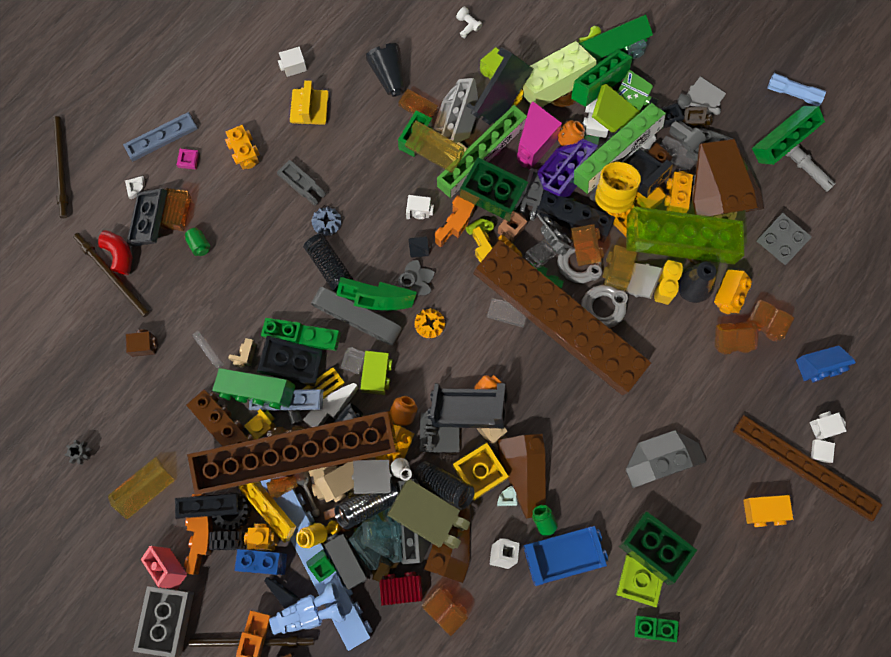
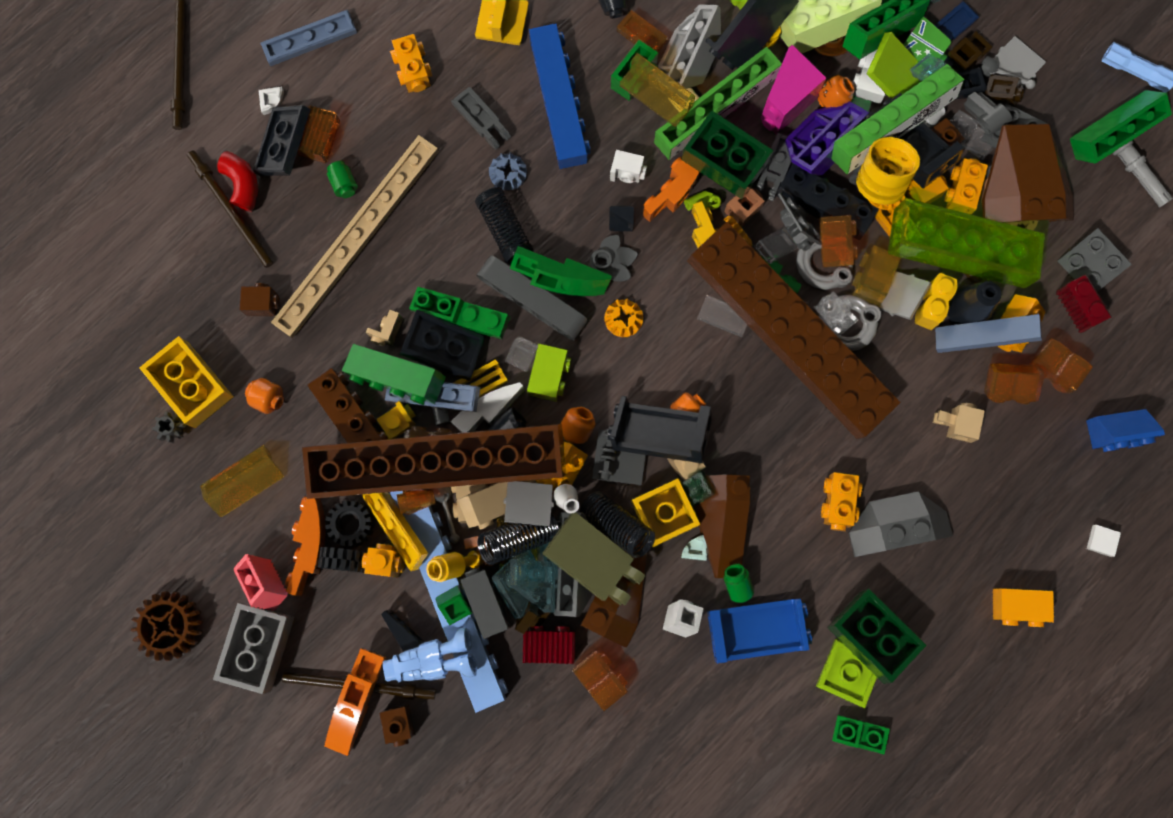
camera: 10 degrees right, 5 degrees up
(88, 414) = (186, 382): none -> yellow brick
(107, 618) = (148, 617): none -> reddish brown gear
(152, 417) = (264, 395): none -> orange head
(187, 158) = (340, 70): dark pink tile -> none
(206, 506) = (320, 513): black tile -> none
(208, 350) = (341, 318): clear tile -> none
(211, 285) = (355, 237): none -> tan plate
(260, 562) = (379, 591): blue window -> none
(359, 160) = (558, 96): none -> blue brick
(503, 449) = (697, 488): none -> clear green tile
(593, 299) = (836, 313): none -> clear brick
(616, 445) = (841, 501): none -> light orange brick
(636, 107) = (926, 67): none -> clear light blue plate
(655, 70) = (957, 21): none -> dark blue tile
(668, 91) = (970, 51): none -> dark brown slope
(702, 372) = (963, 422): none -> tan brick
(711, 302) = (988, 333): none -> sand blue tile
(780, 271) = (1083, 304): none -> dark red brick
(807, 468) = (1081, 560): reddish brown tile -> none
(828, 425) = (1115, 509): white brick -> none

